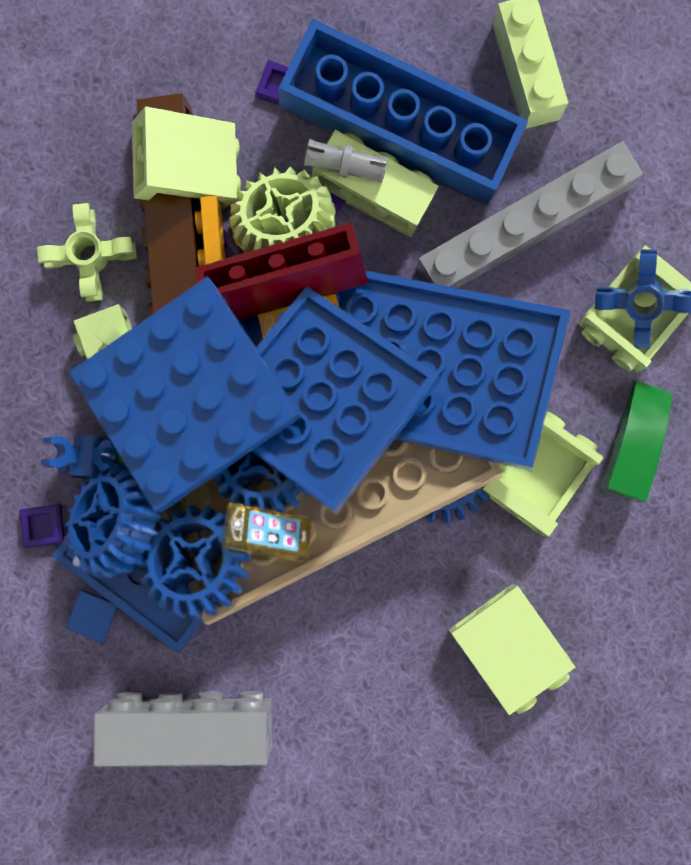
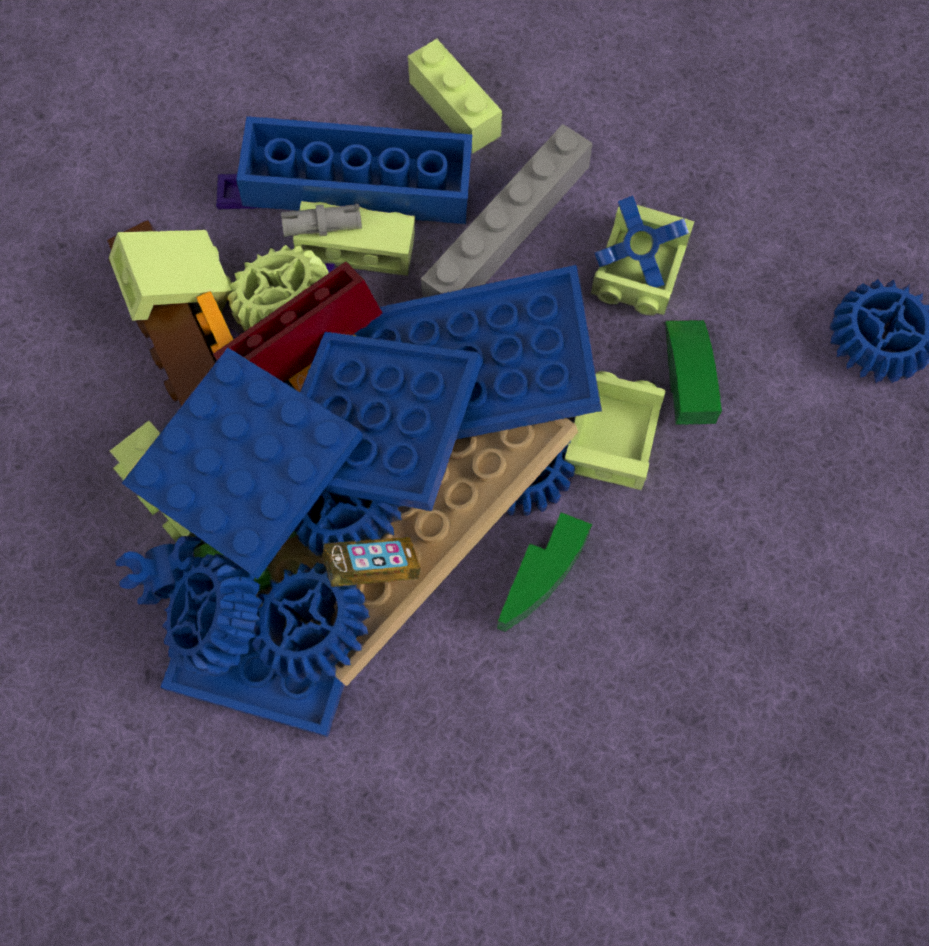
camera: 20 degrees left, 15 degrees down
(42, 526) = (140, 666): dark purple tile -> none
(85, 235) = (95, 377): yellowish green pin -> none
(92, 616) = (222, 736): blue tile -> none
(184, 730) = (359, 803): light grey brick -> none
(423, 582) = (544, 570): none -> green slope
(512, 650) = (659, 600): yellowish green panel -> none

